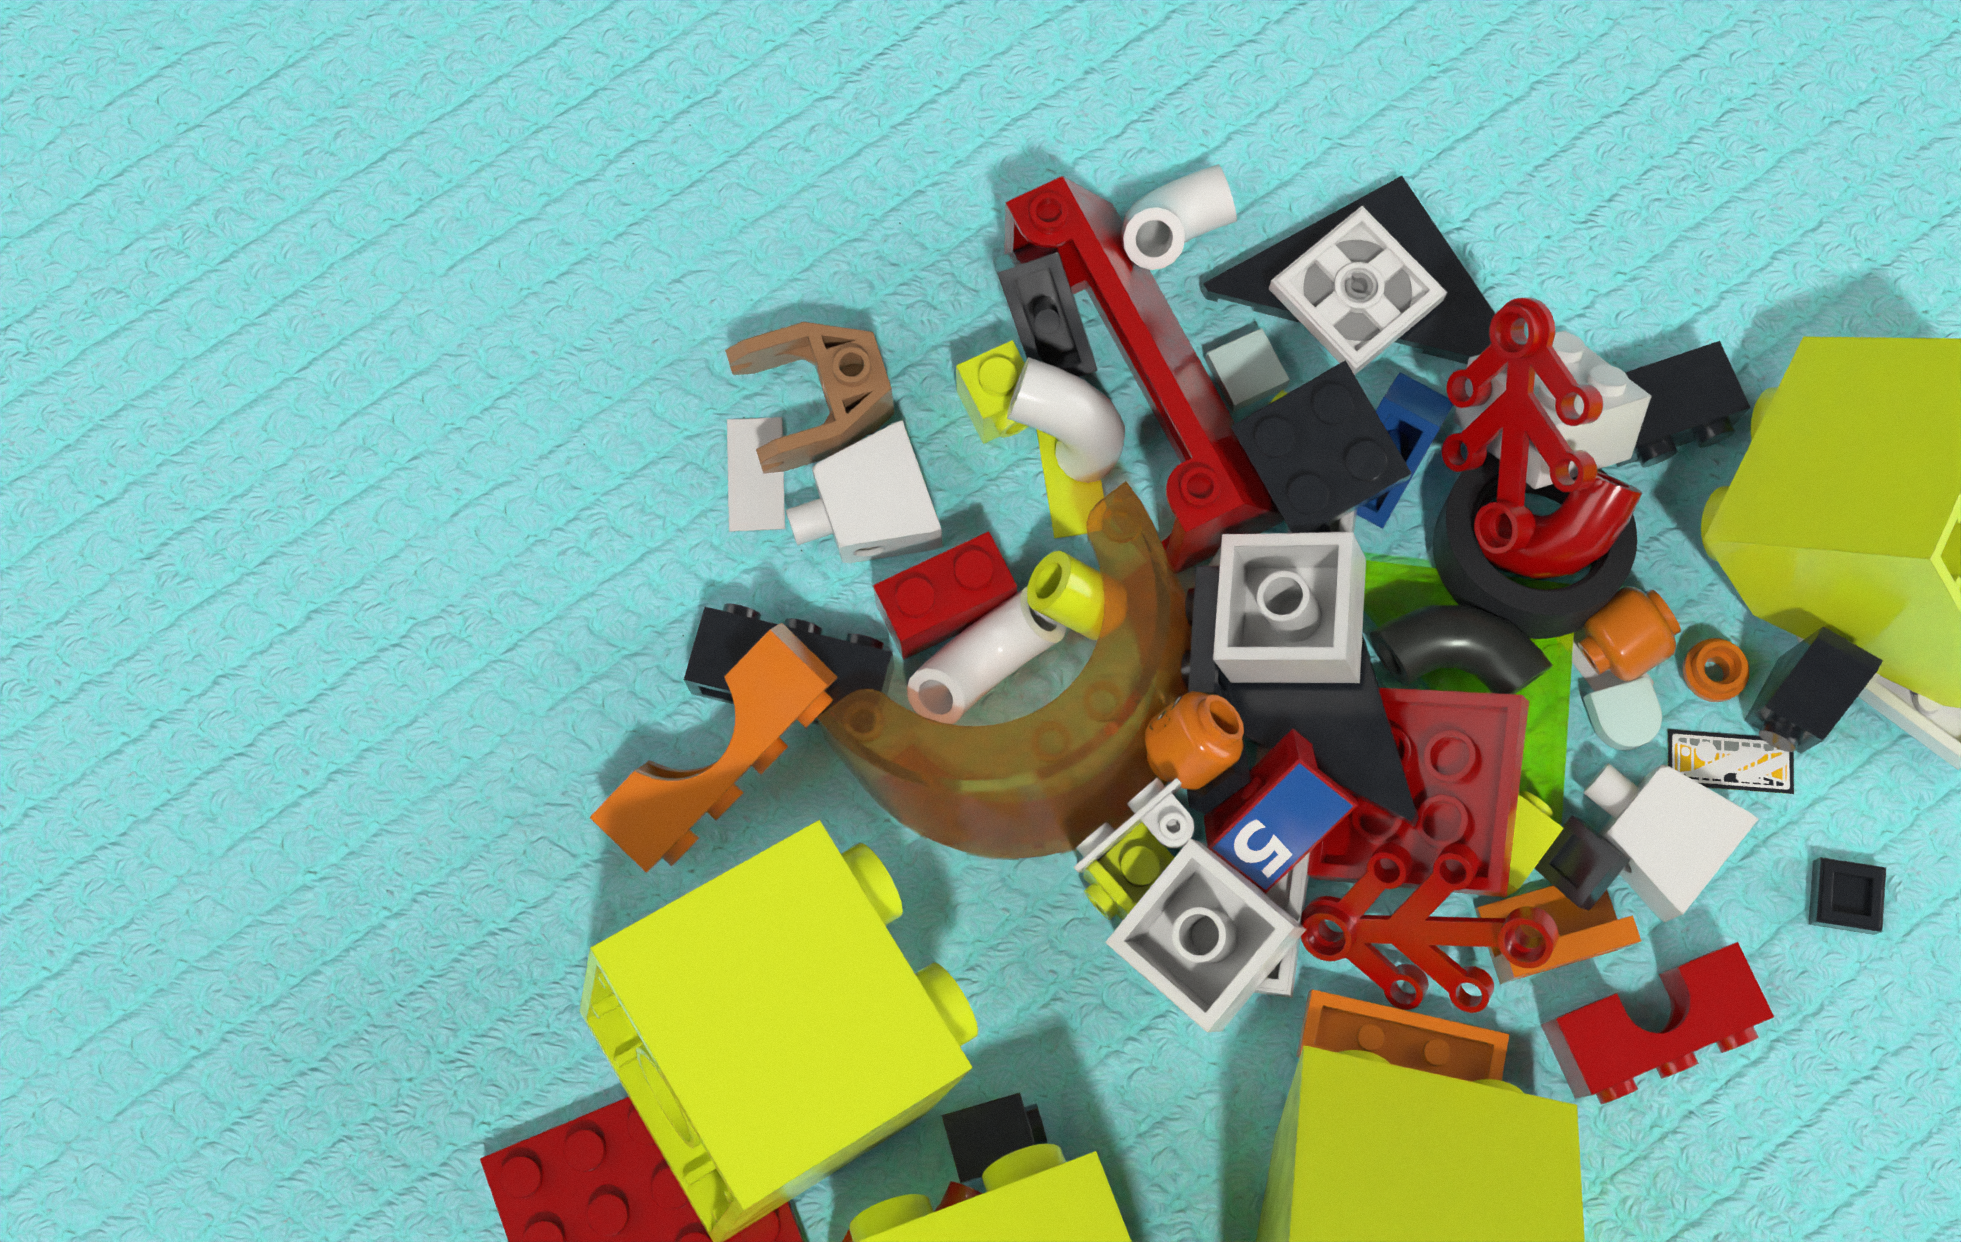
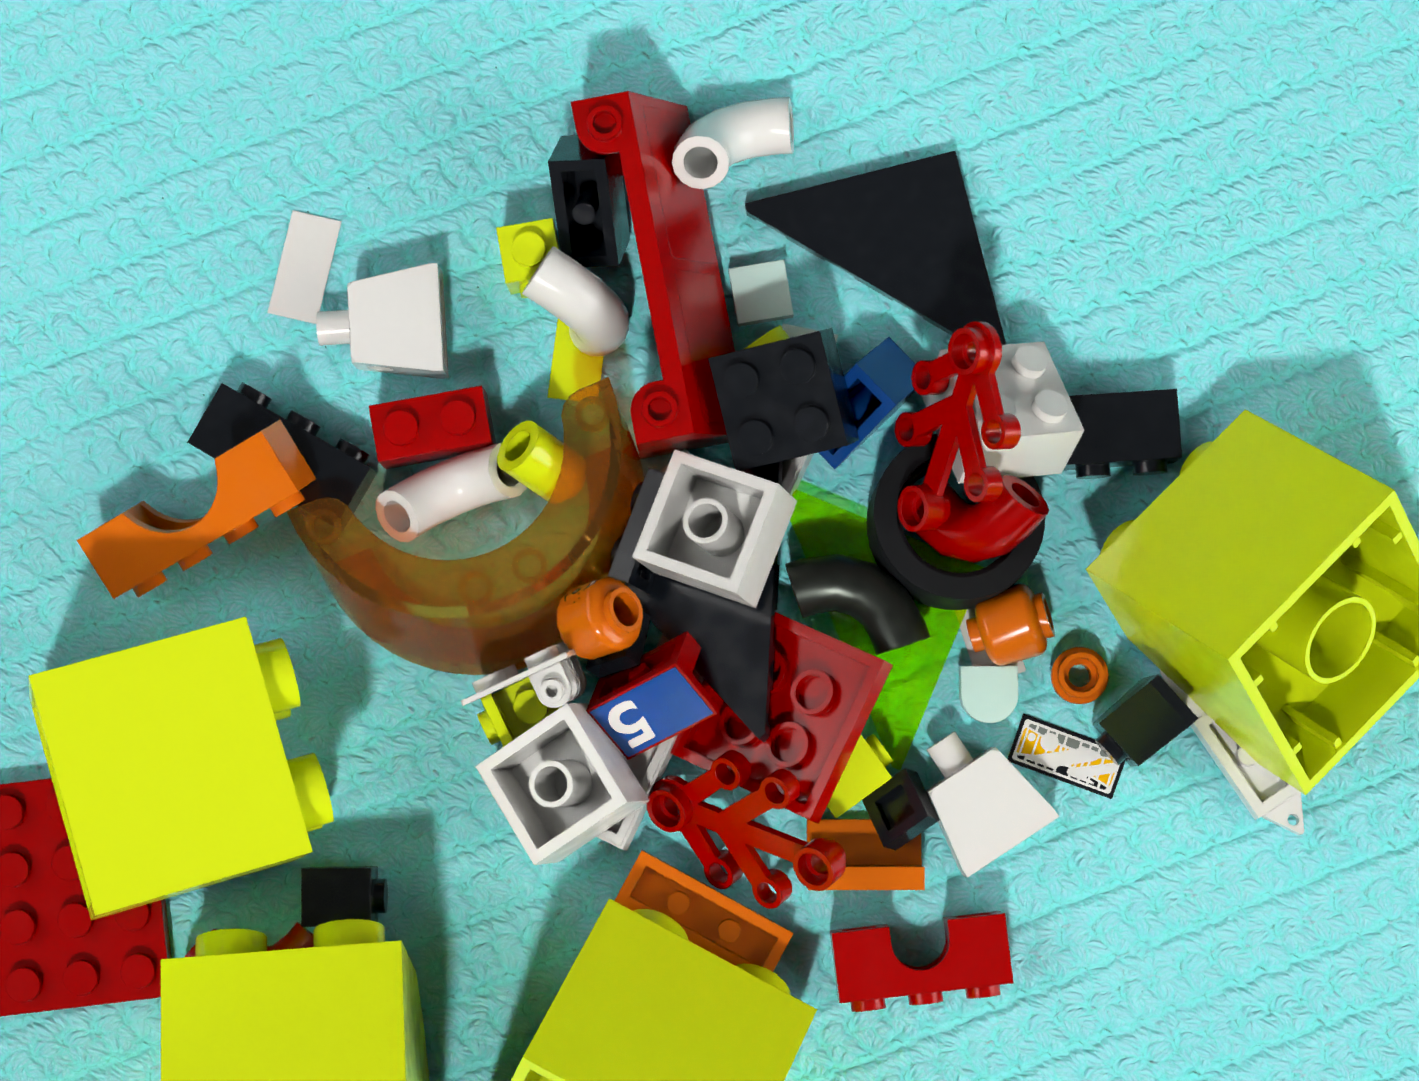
camera: 20 degrees right, 10 degrees up
(850, 379) = (397, 235): medium nougat piece -> none
(1357, 290) = (874, 251): white piece -> none
(1847, 896) = (1123, 898): black tile -> none

